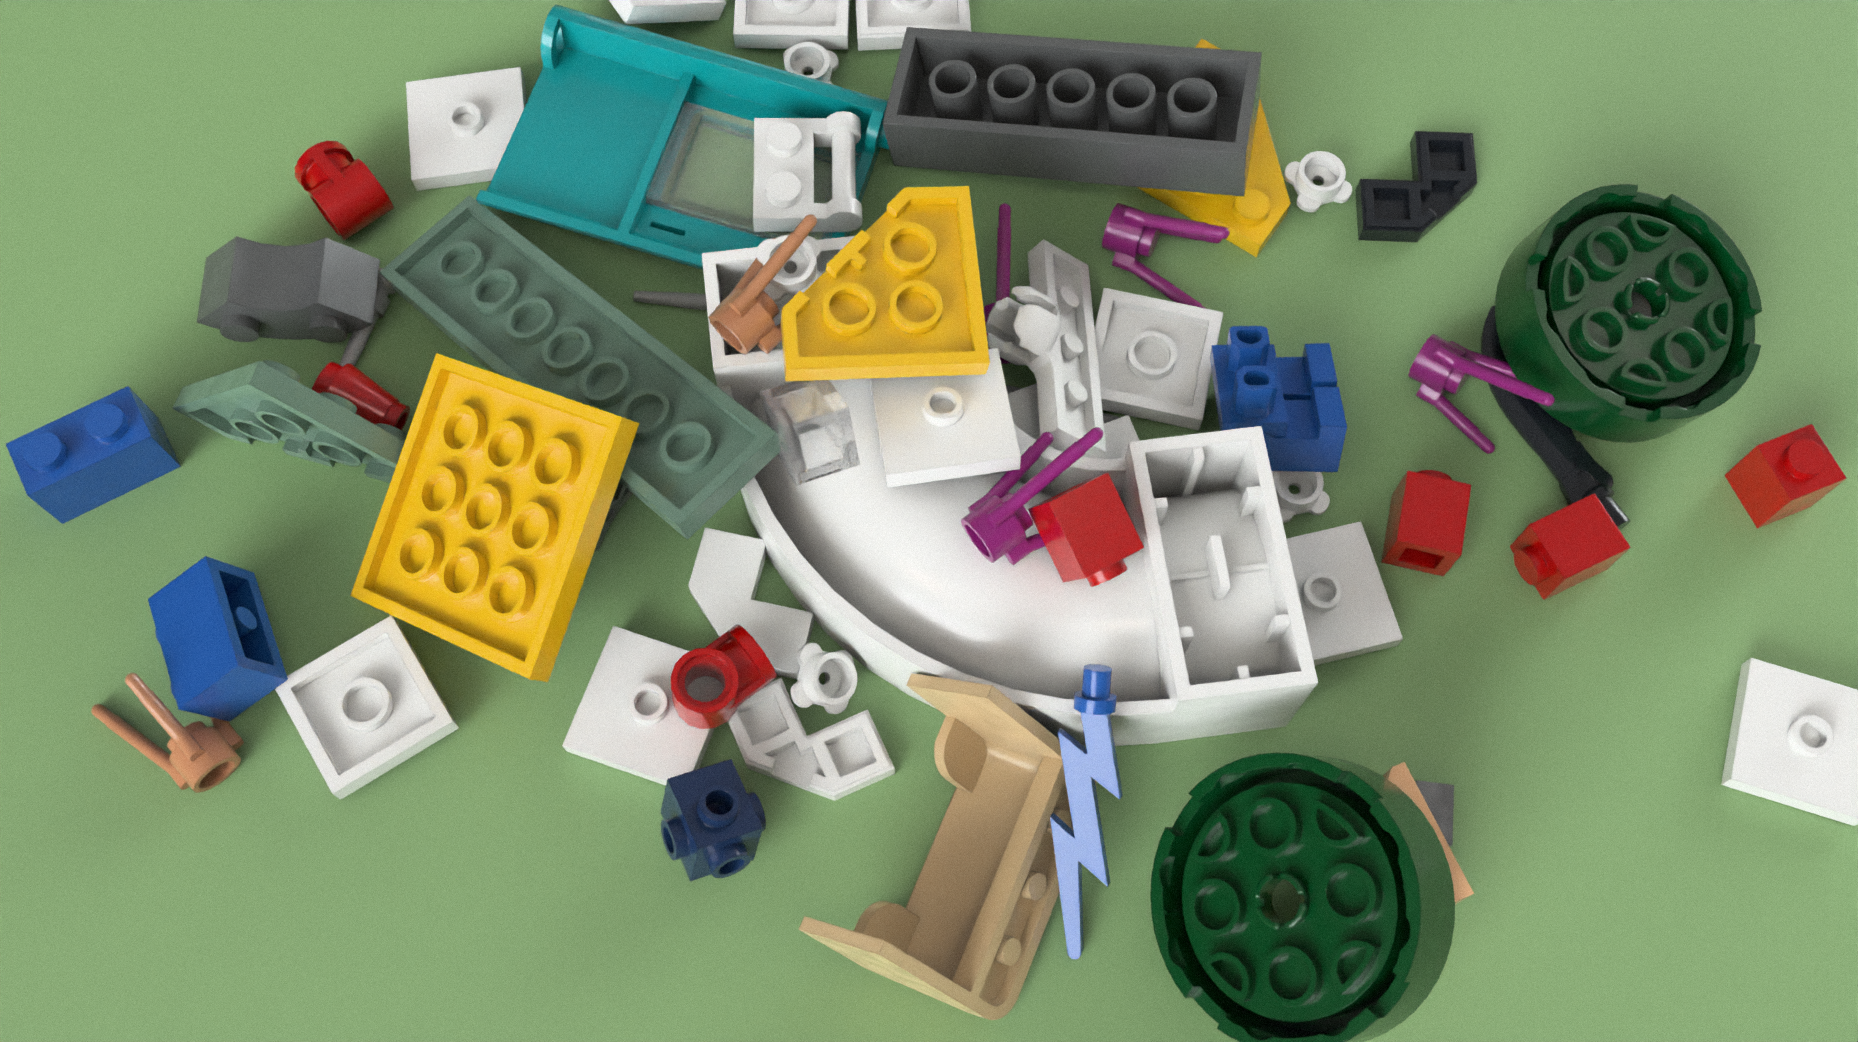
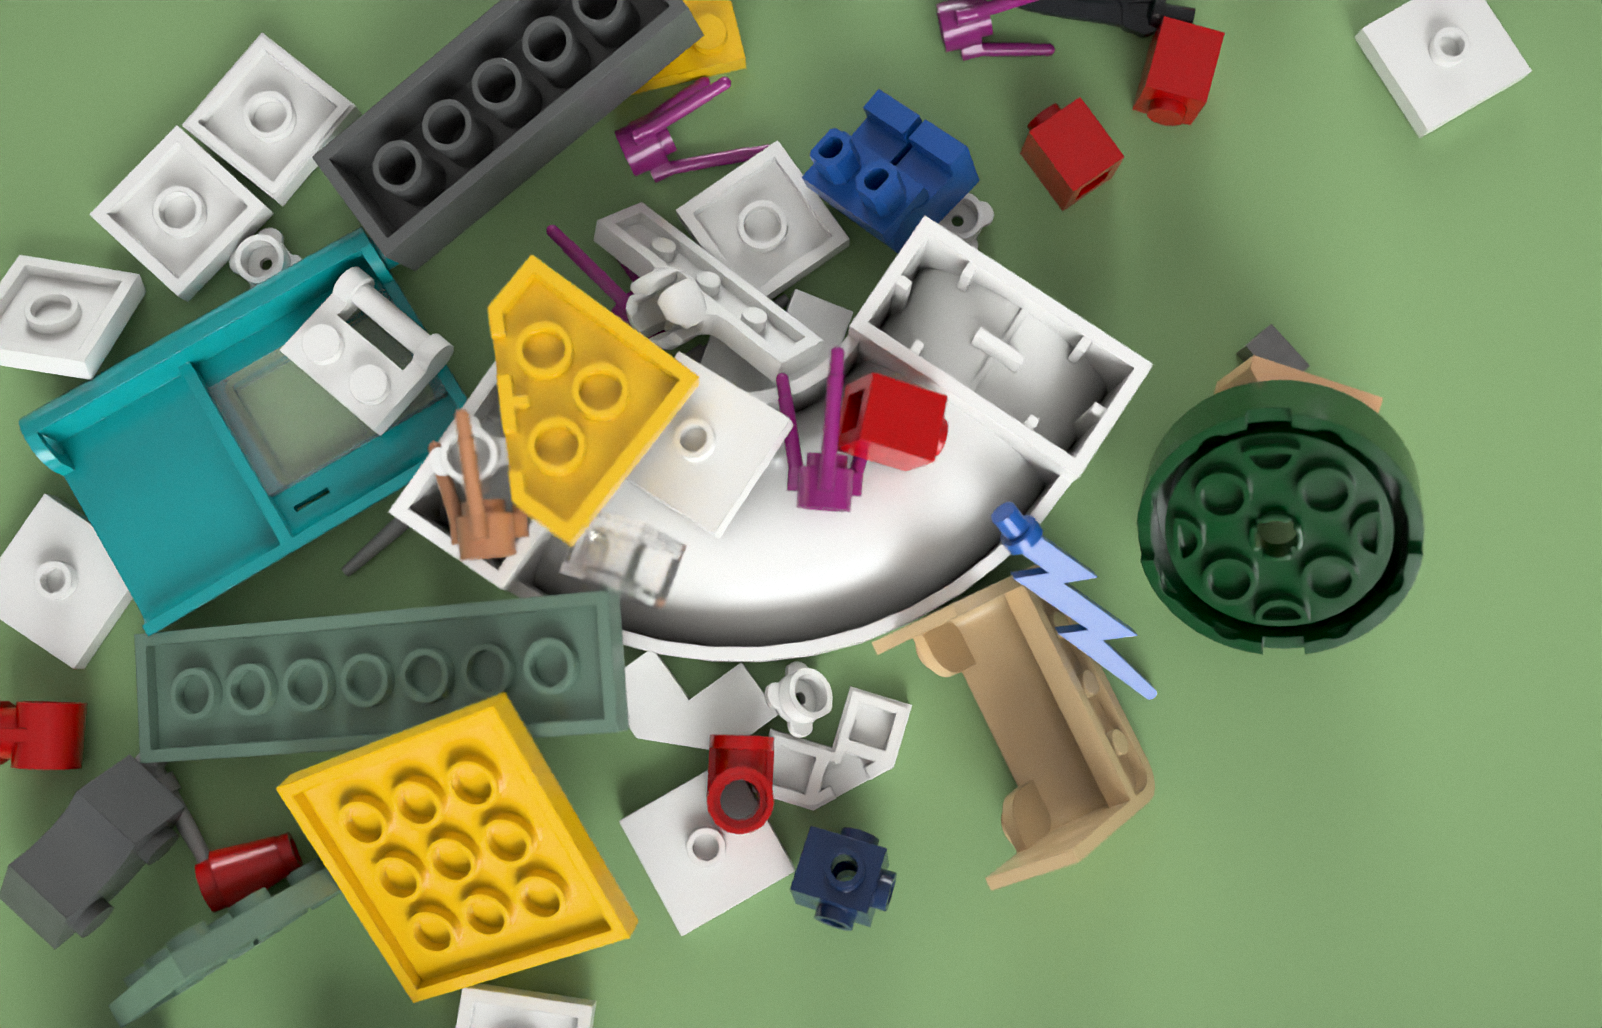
camera: 45 degrees left, 15 degrees up
(1342, 594) = (1065, 261): white plate -> none

